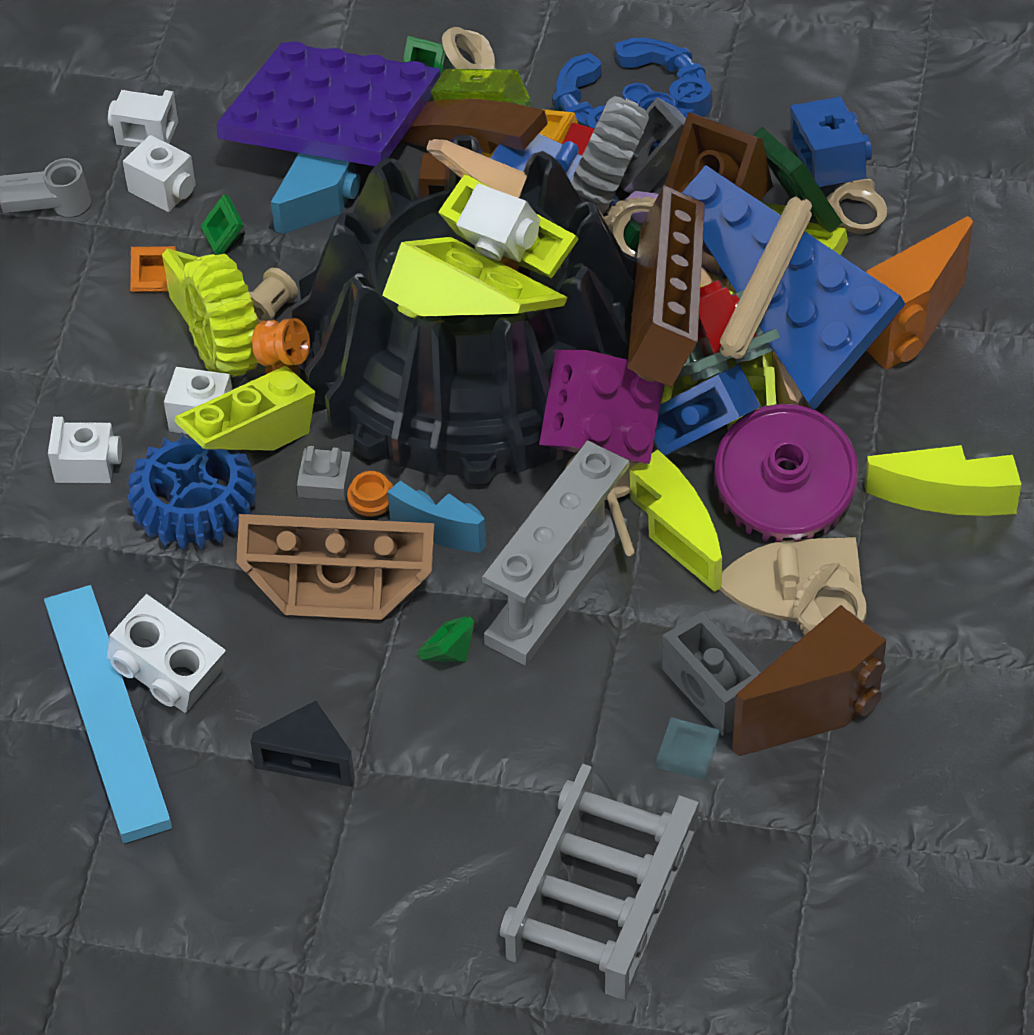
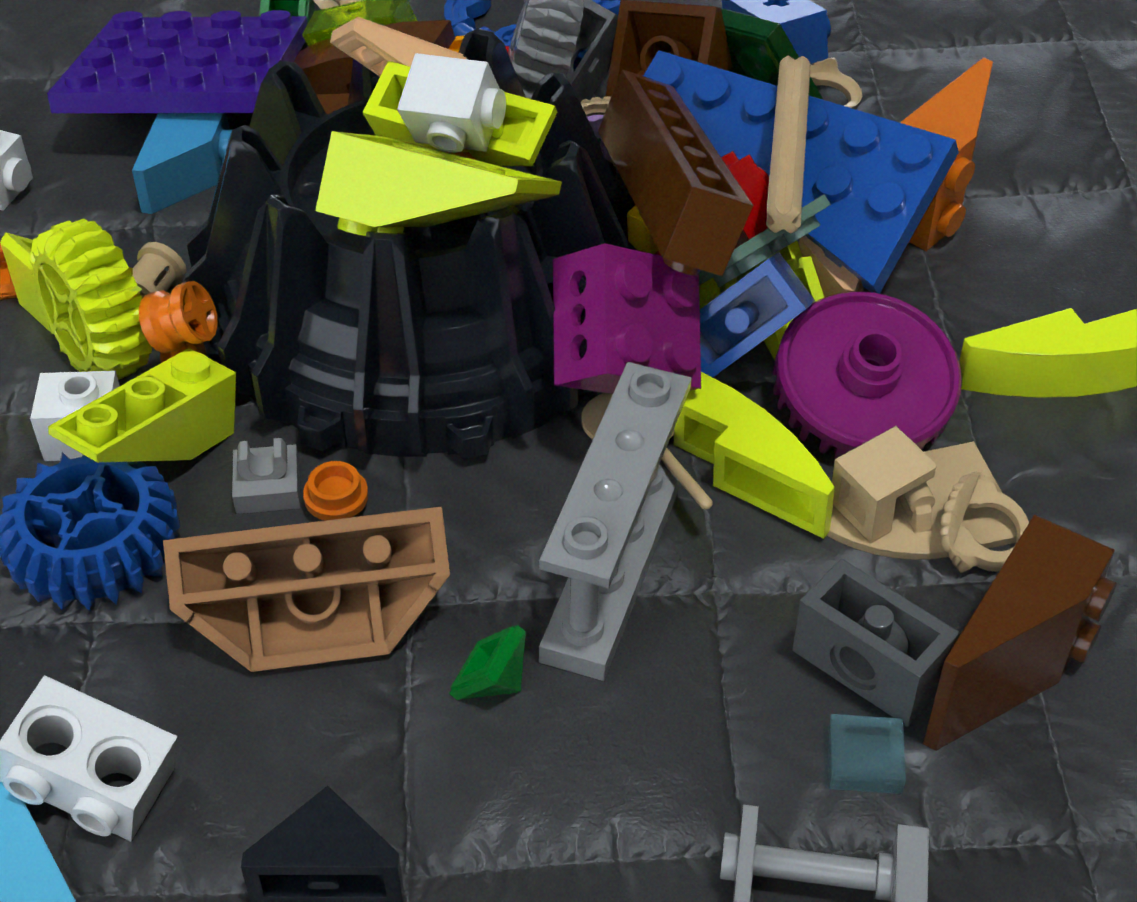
camera: 15 degrees left, 5 degrees down
(223, 226) = (75, 203): green slope -> none
(456, 523) = (469, 506): dark azure slope -> none
(759, 552) = (874, 477): none -> tan panel

